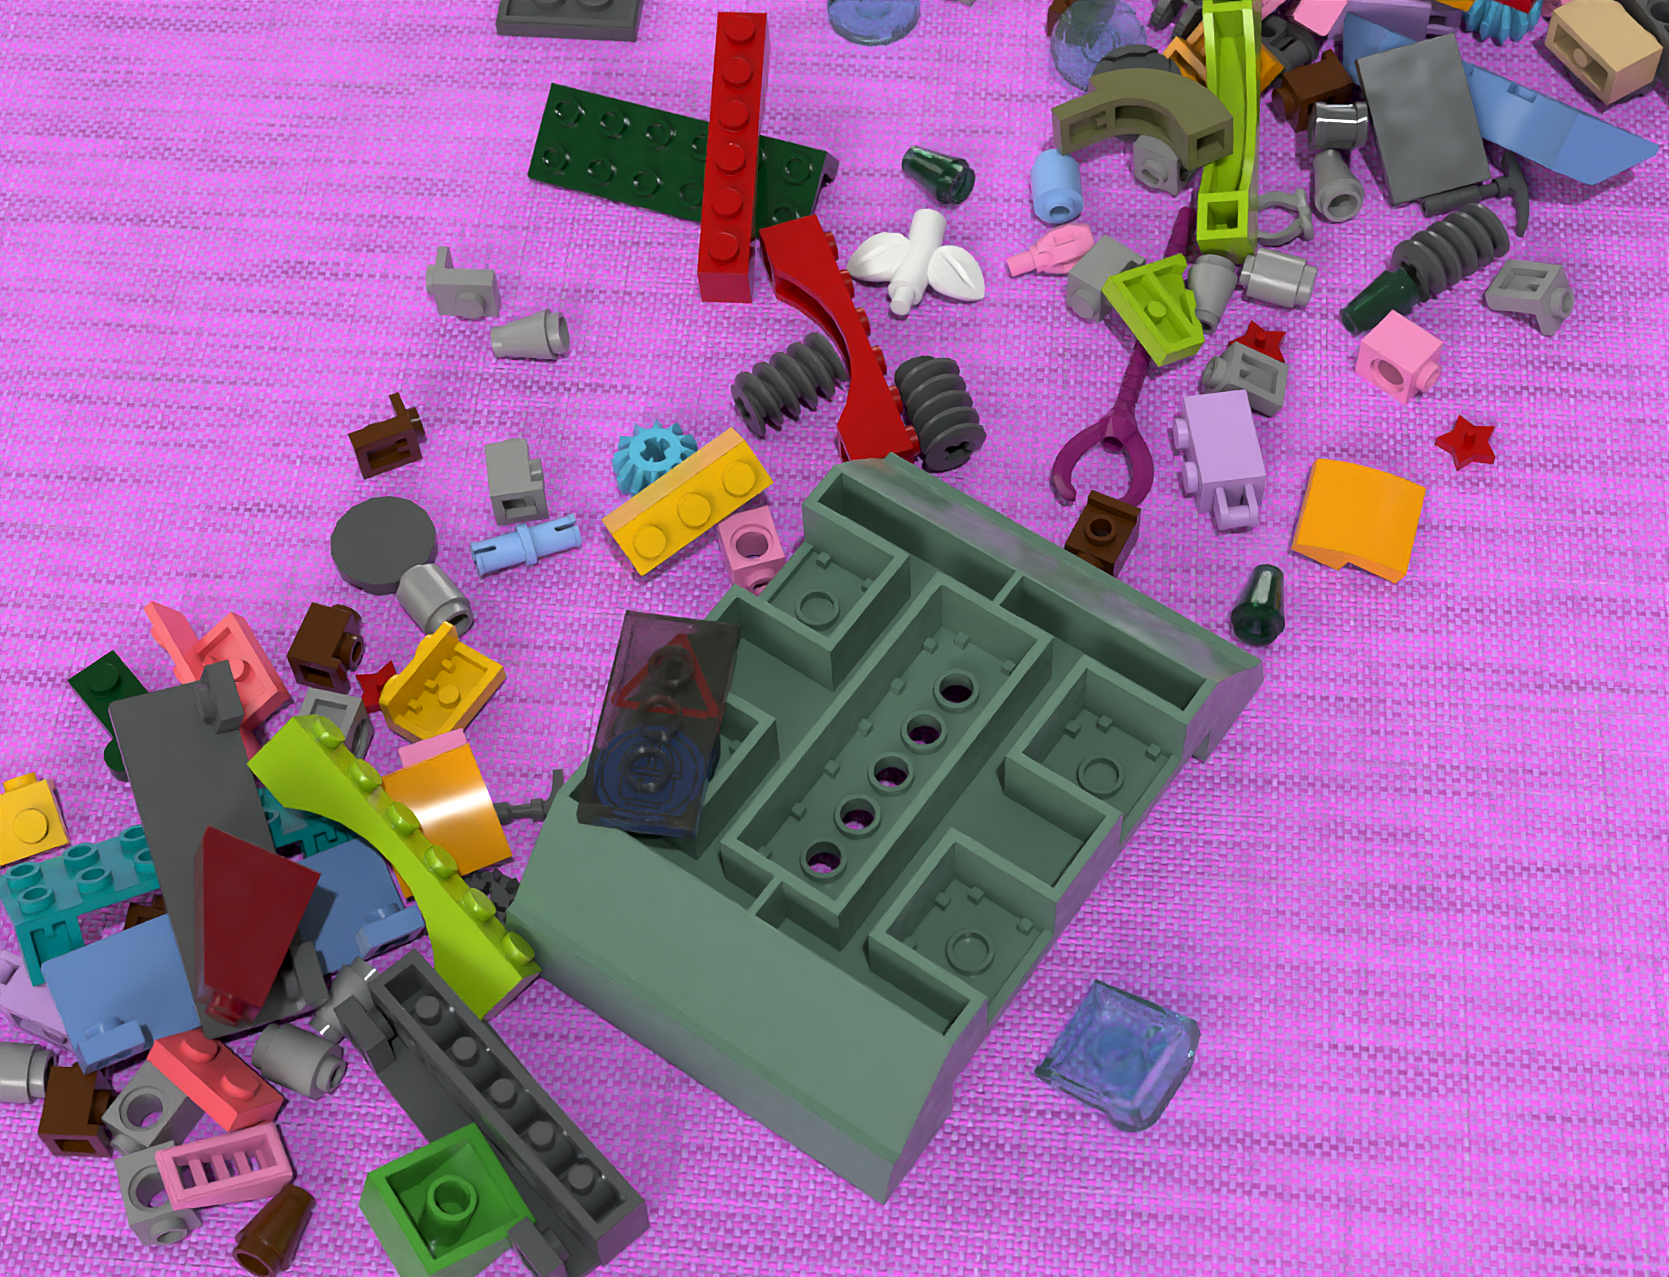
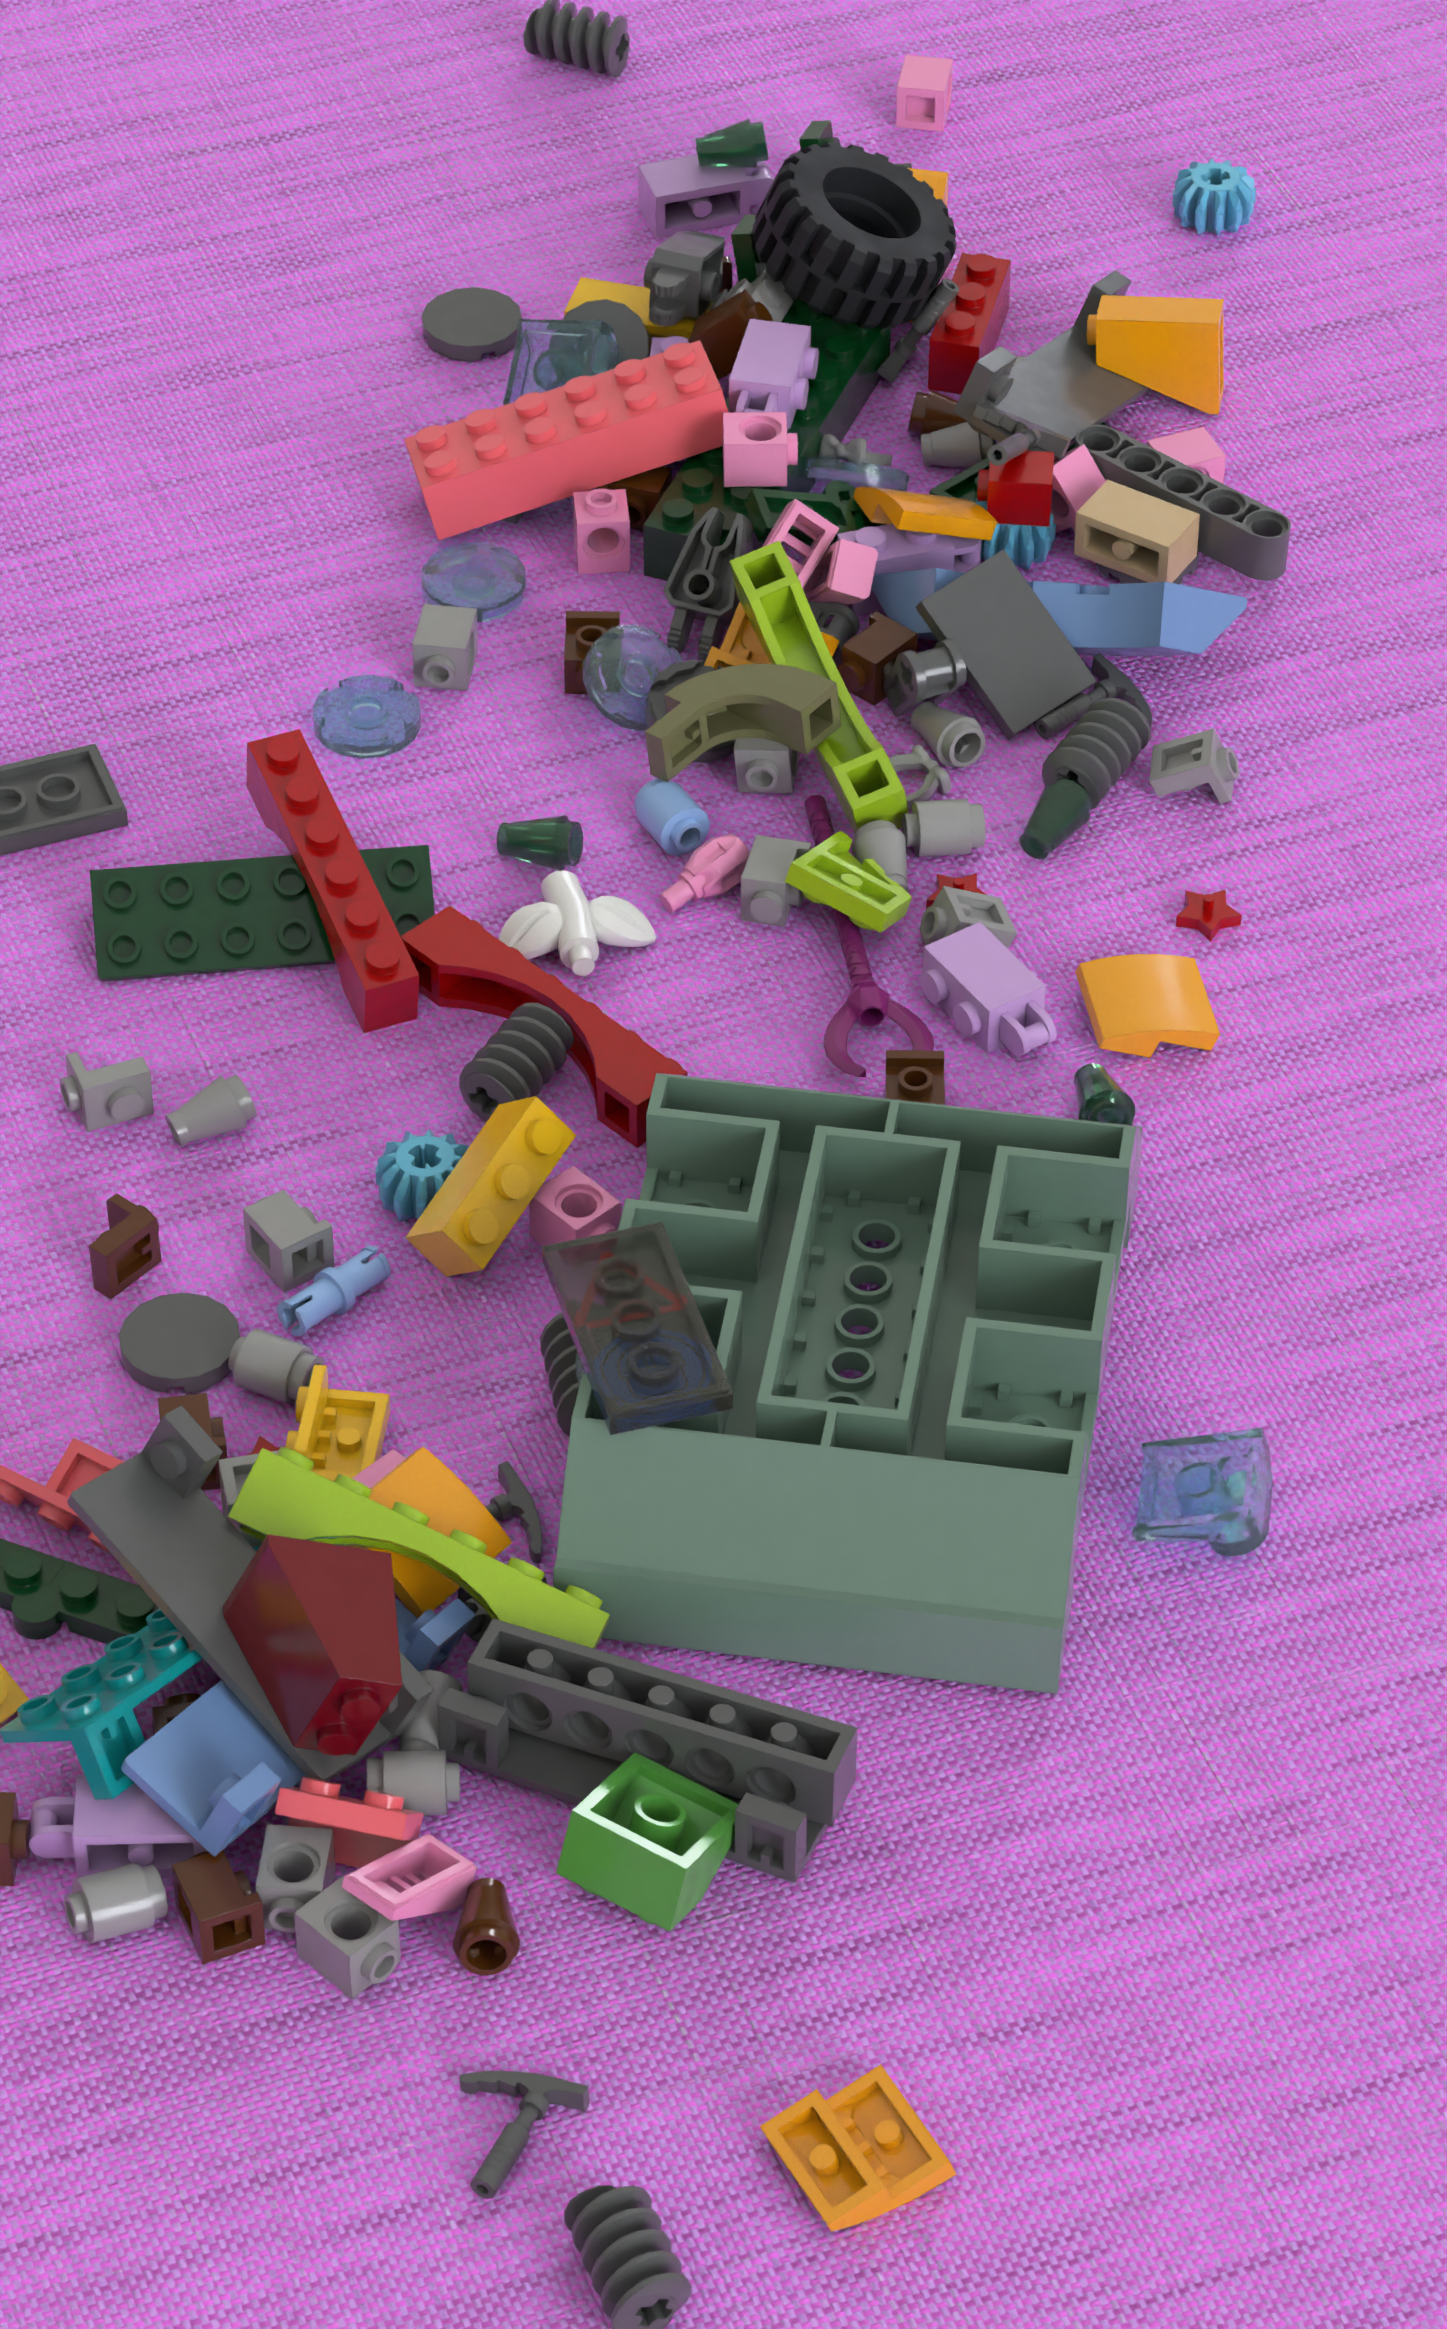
camera: 30 degrees left, 15 degrees down
(939, 410) = (686, 1033): dark grey piece -> none
(1400, 358) = (1104, 858): bright pink brick -> none

